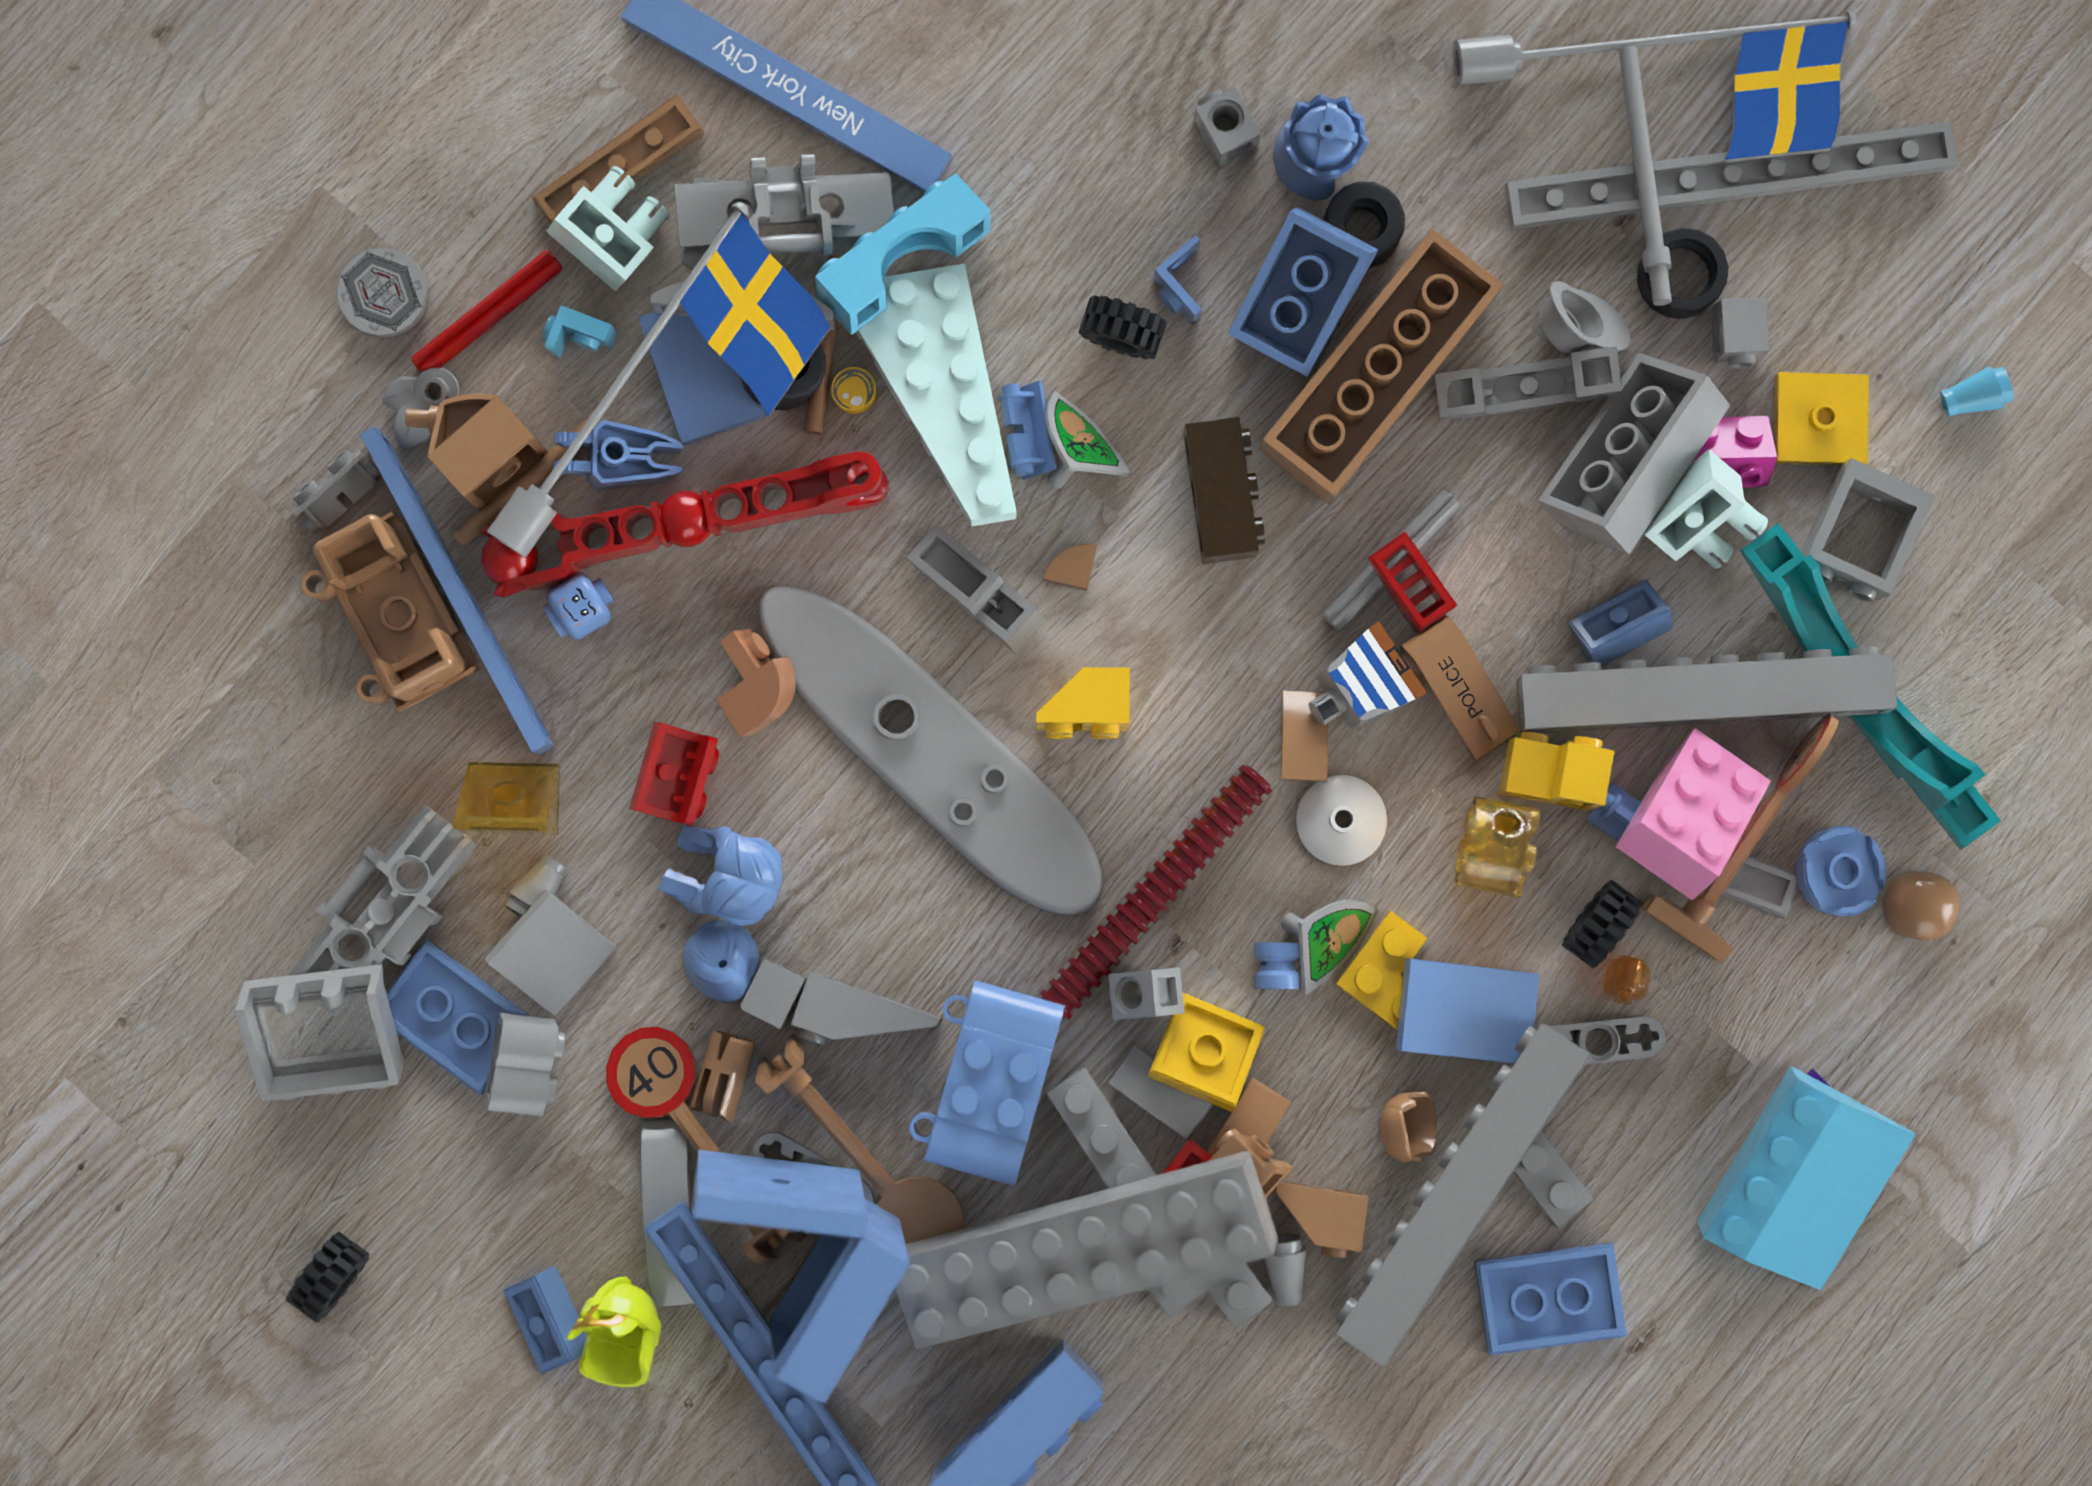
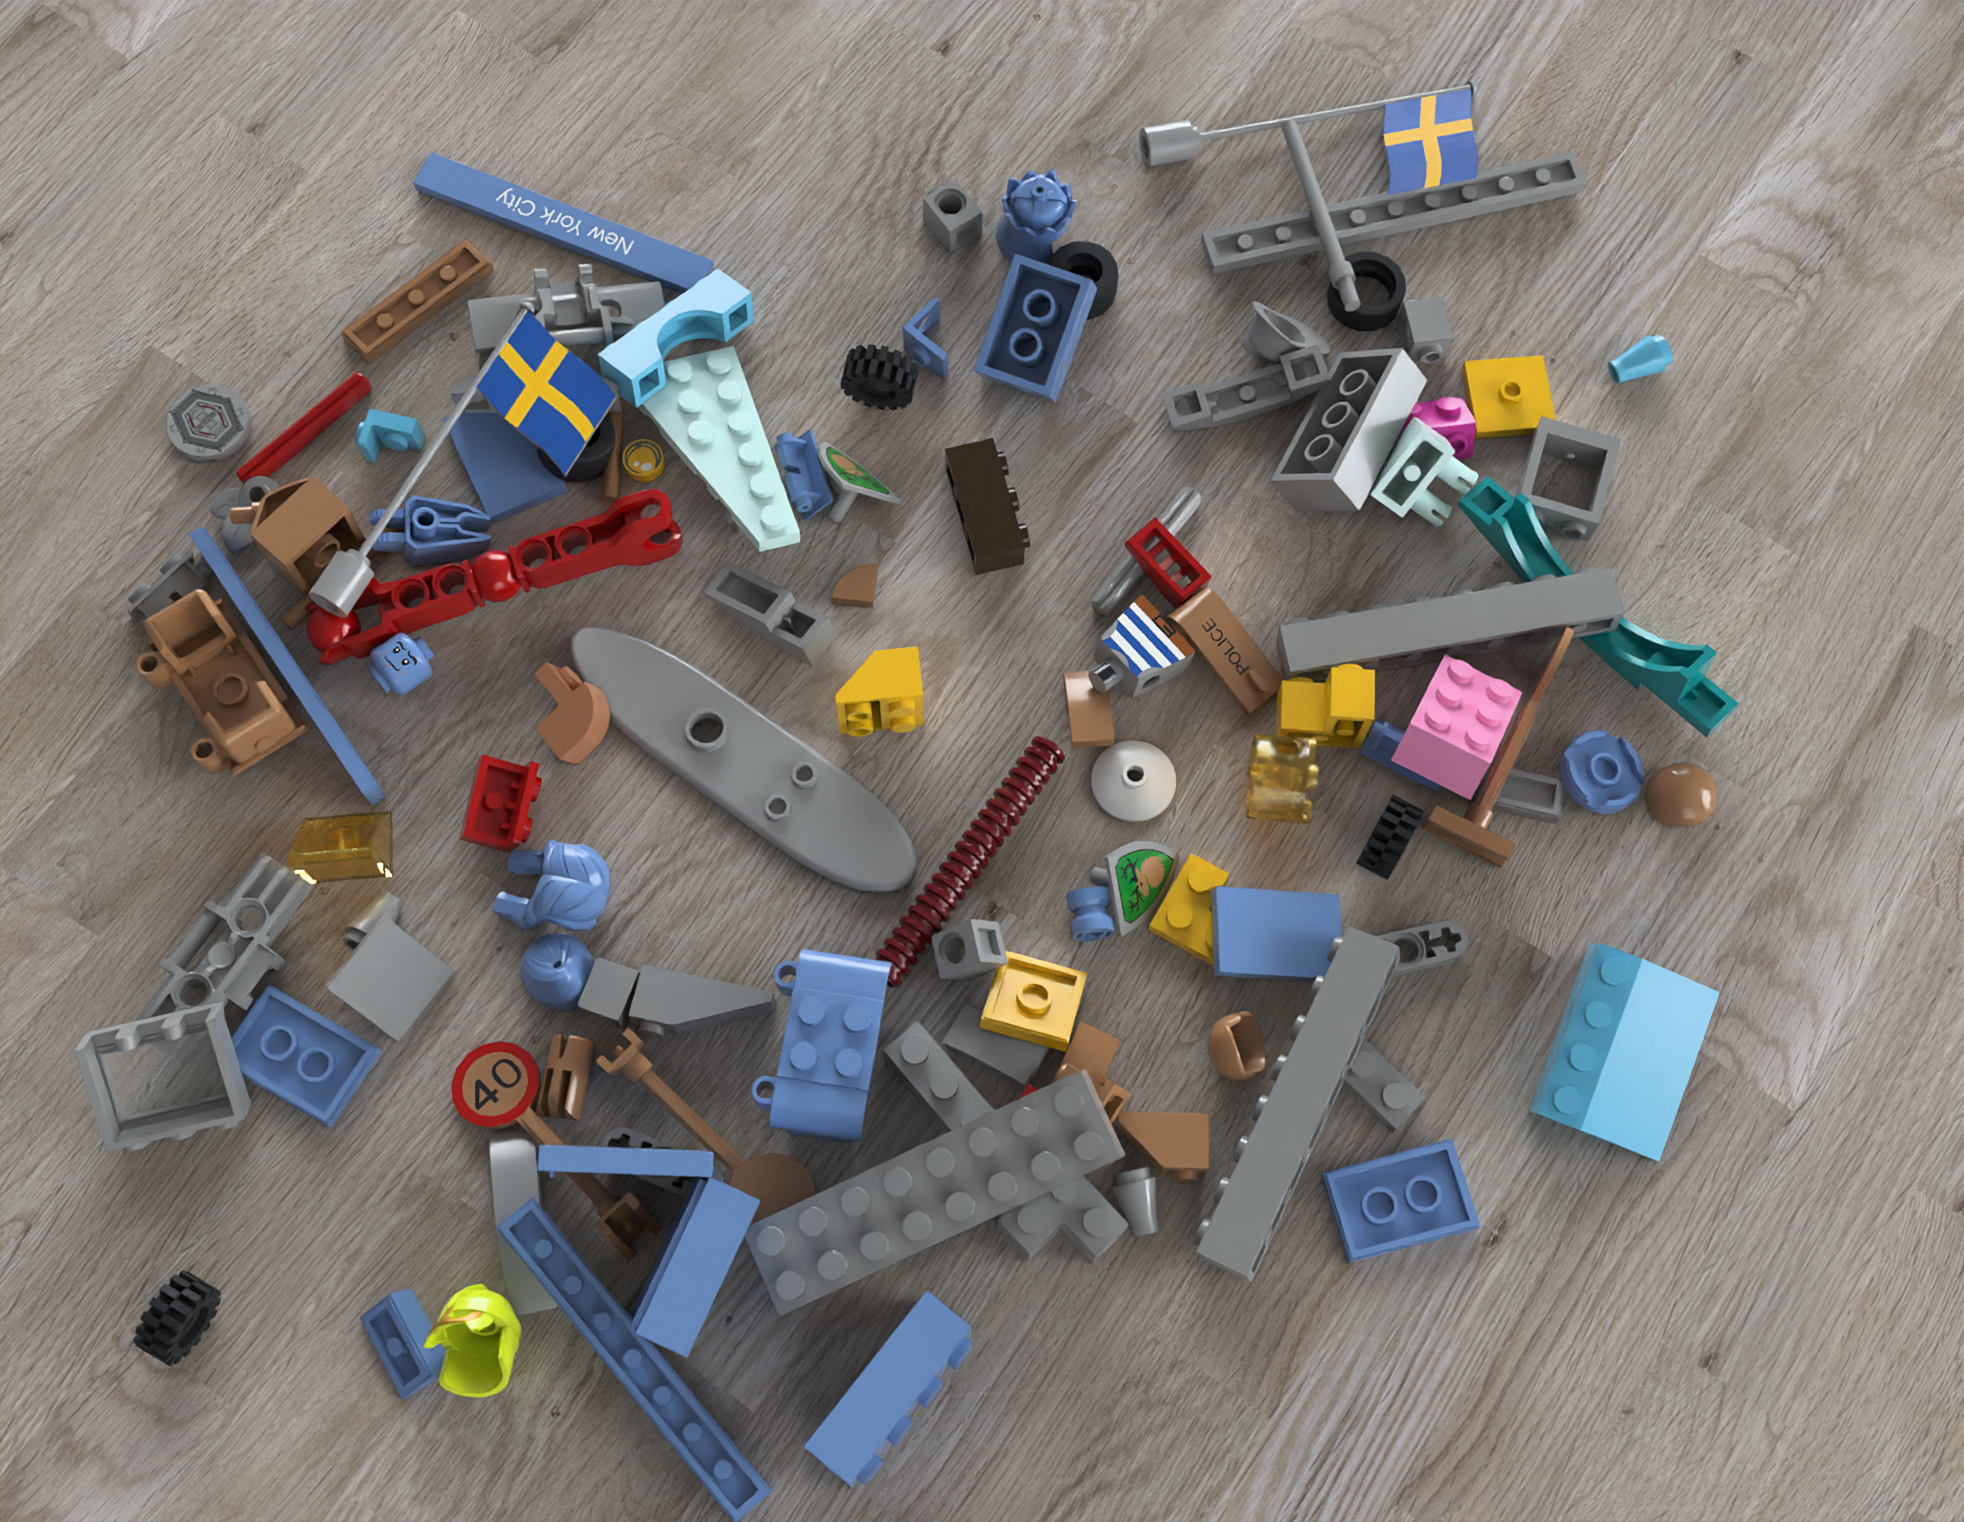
camera: 10 degrees left, 15 degrees down
(523, 1064) = (367, 1086): light grey brick -> none
(601, 237) = (403, 350): light aqua brick -> none
(1380, 366) = (1112, 388): medium nougat brick -> none
(1621, 624) = (1364, 582): medium blue slope -> none
(1627, 979) = (1422, 893): clear orange piece -> none

